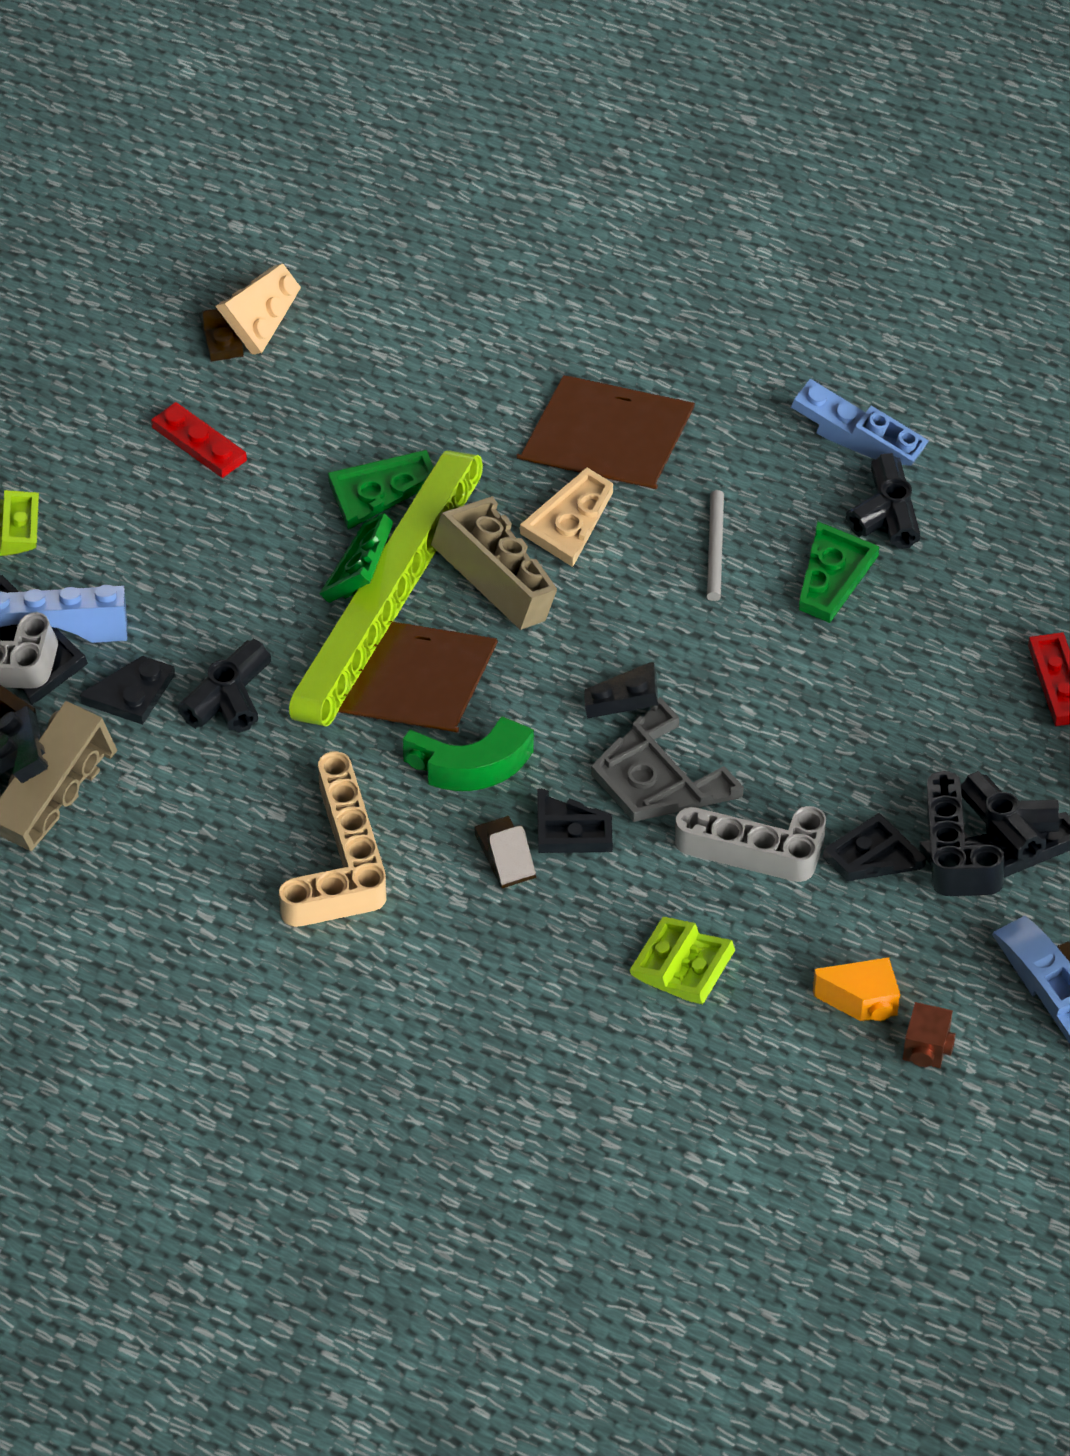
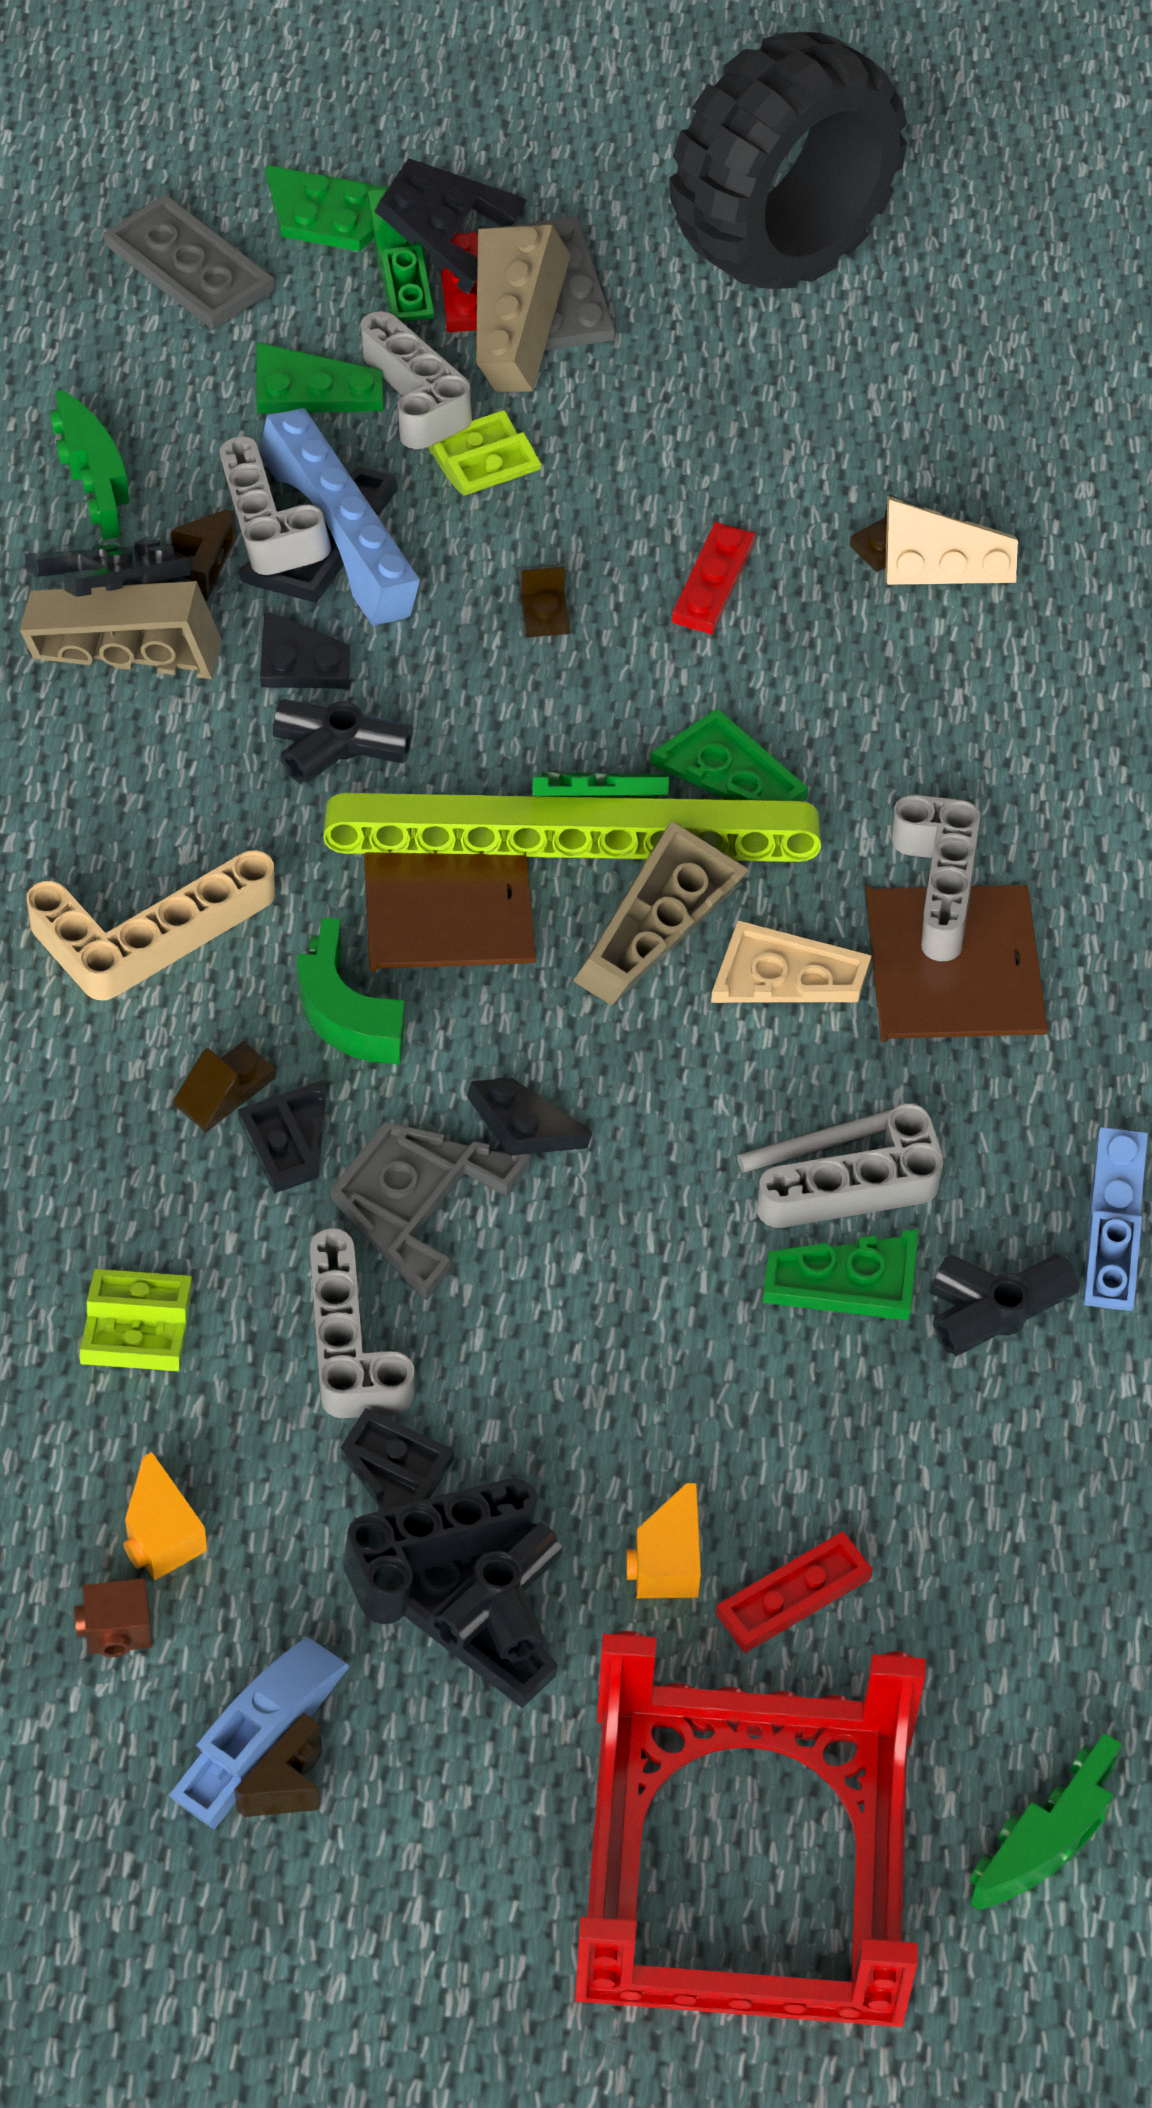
camera: 65 degrees right, 5 degrees up
(154, 535) = (543, 600): none -> dark brown slope
(538, 401) = (949, 835): none -> light grey beam
(766, 510) = (781, 1187): none -> light grey beam
(1001, 726) = (668, 1550): none -> light orange slope

